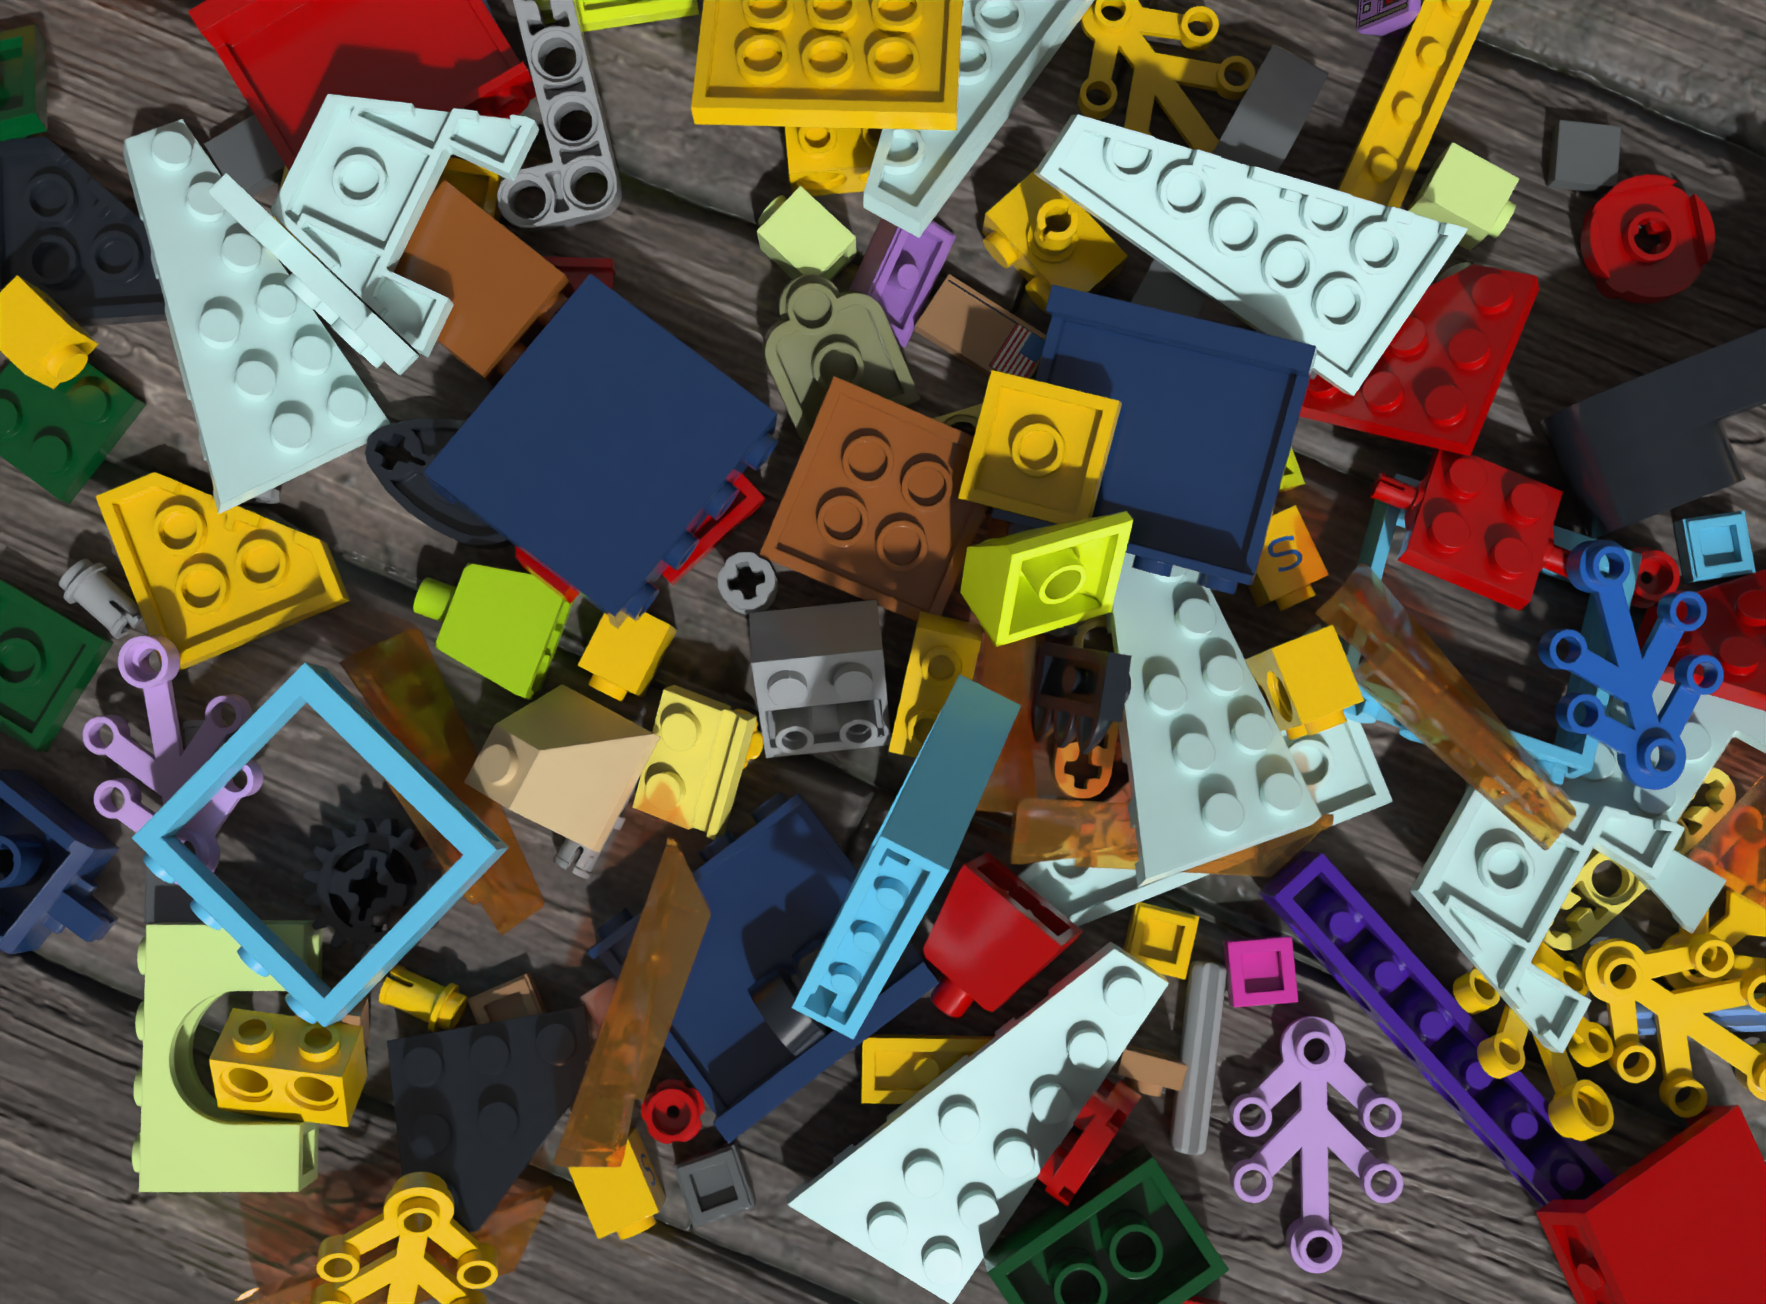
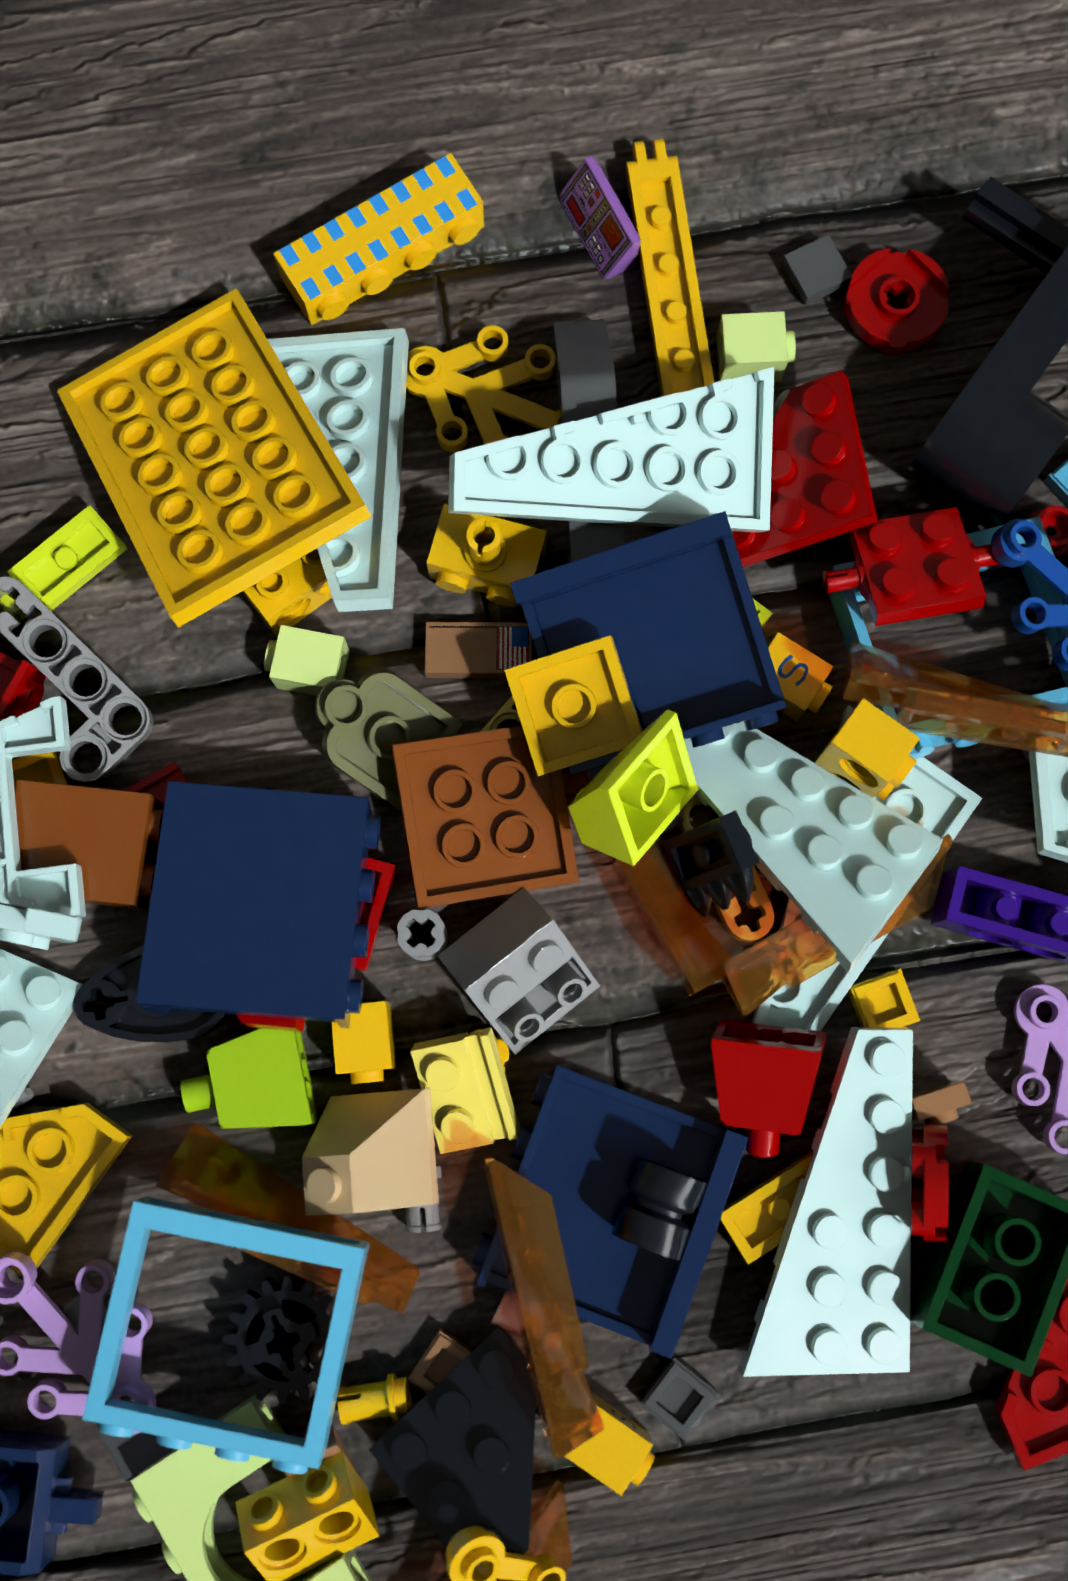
camera: 30 degrees left, 5 degrees down
(668, 1128) = (617, 1378): red plate -> none
(902, 272) = (390, 641): medium lavender slope -> none
(908, 857) = (680, 1080): medium azure window -> none
(937, 657) = (608, 924): yellow brick -> none
(1199, 1052) = (964, 1066): light grey axle -> none
(1260, 971) = (969, 979): dark pink plate -> none

